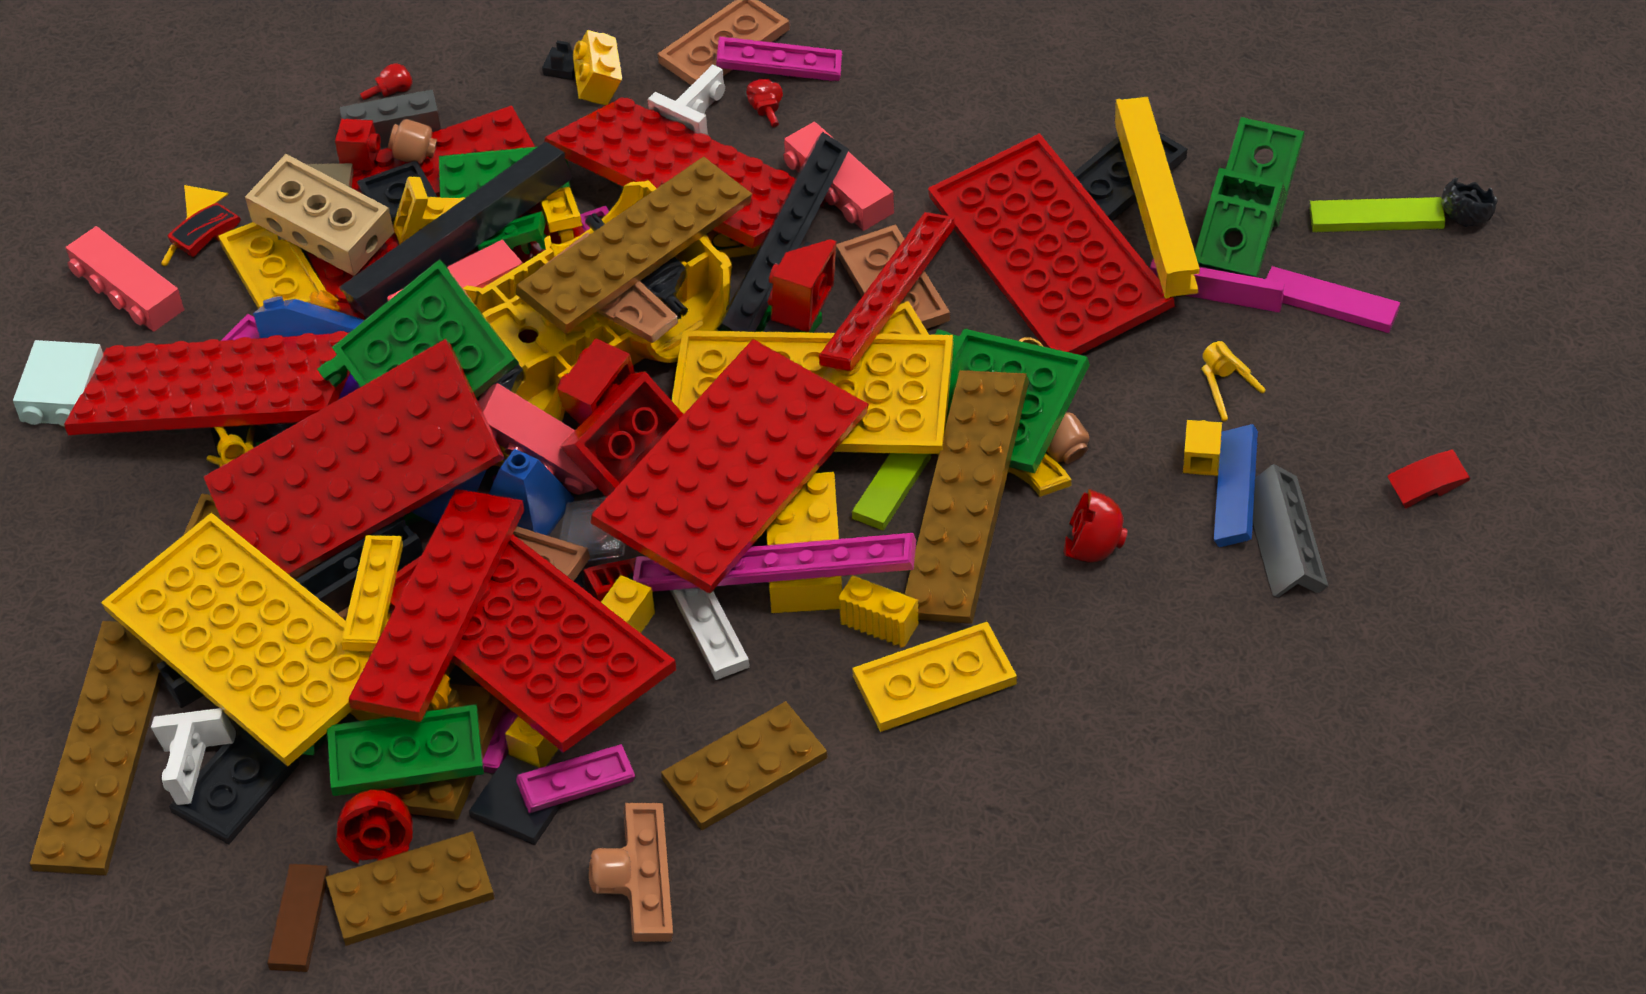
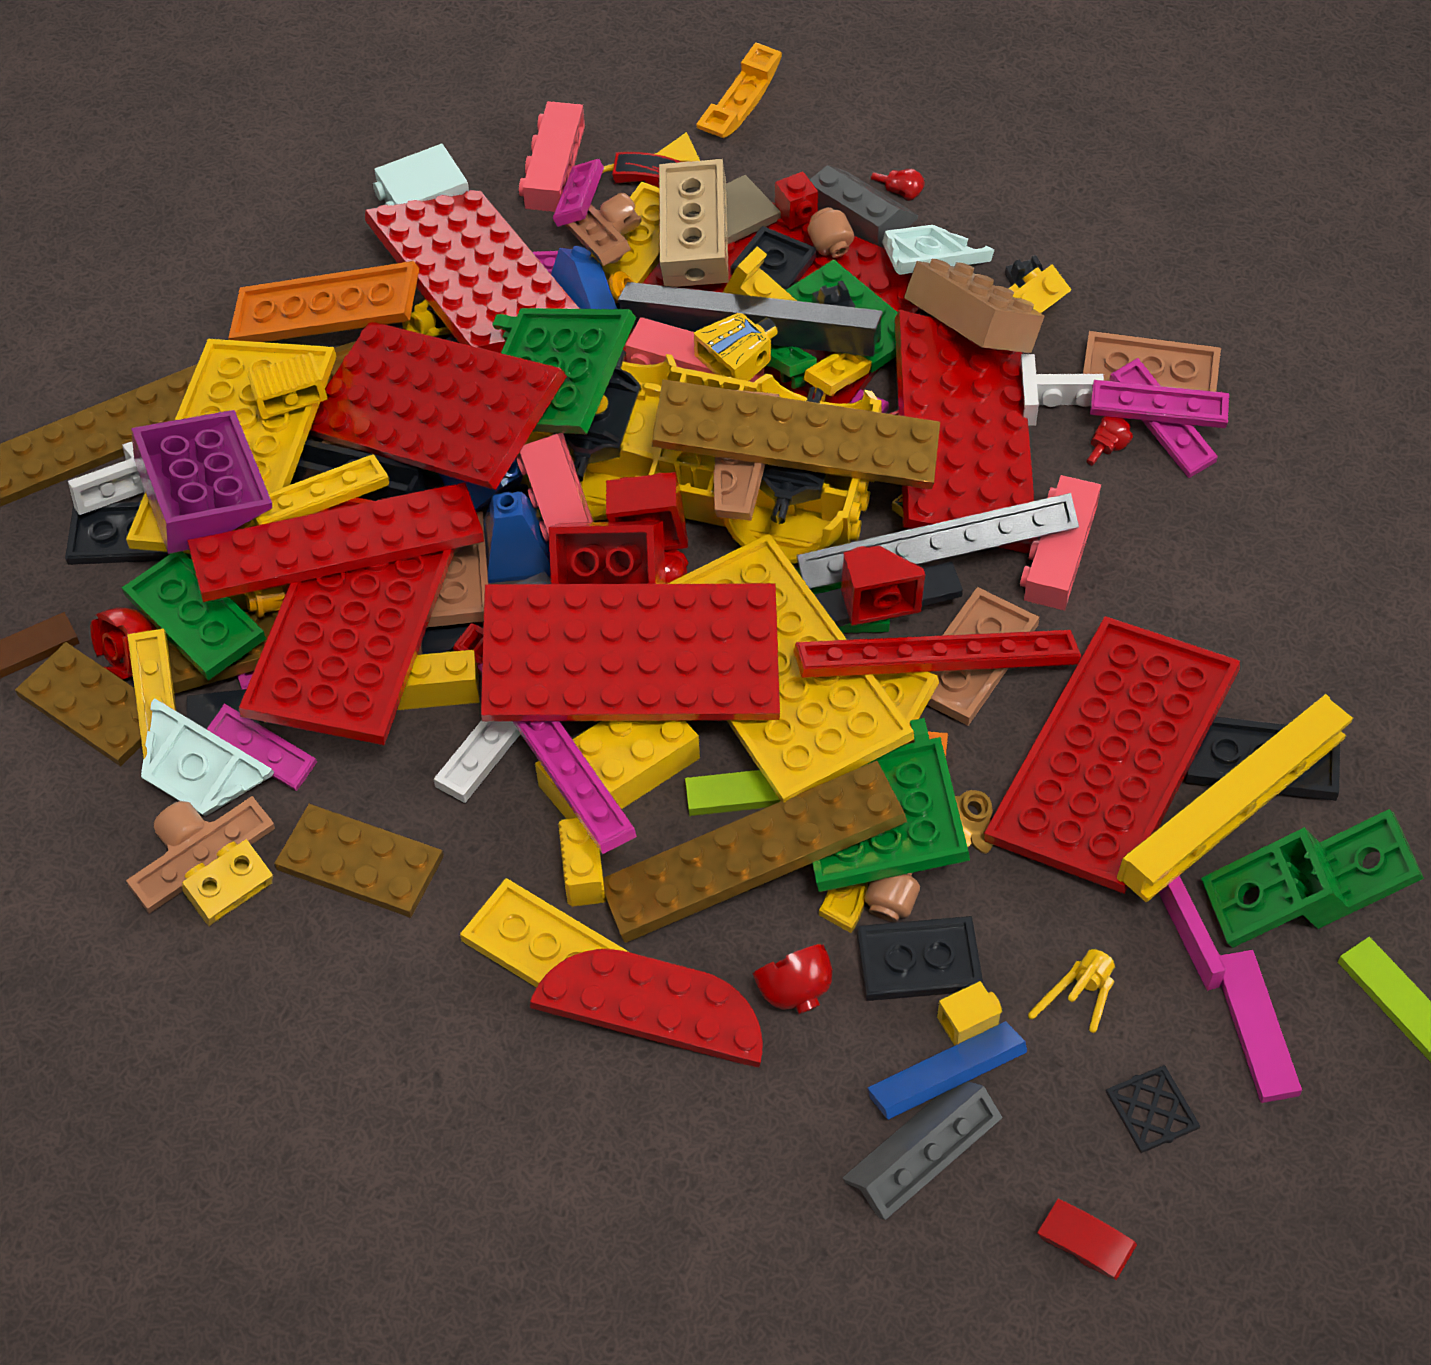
camera: 55 degrees right, 5 degrees up
(139, 506) = (325, 303): none -> orange plate
(185, 124) = (744, 94): none -> light orange slope
(193, 283) = (578, 192): none -> dark pink tile
(234, 557) = (287, 385): none -> yellow brick
(250, 280) = (604, 228): none -> nougat plate
(283, 662) = (199, 476): none -> magenta slope
(468, 826) = (150, 675): none -> yellow tile
(483, 98) = (927, 243): none -> light aqua wing
(489, 168) = (834, 295): none -> black tile
(489, 248) = (735, 346): none -> yellow torso
(553, 828) = (196, 763): none -> light aqua wing
(583, 93) = (974, 306): none -> medium nougat brick
(697, 860) = (226, 881): none -> yellow brick
(771, 49) = (1159, 403): none -> dark pink tile
(1045, 628) = (653, 1003): none -> red plate
(1128, 454) = (918, 958): none -> black tile
(1355, 374) = (1177, 1097): none -> black window

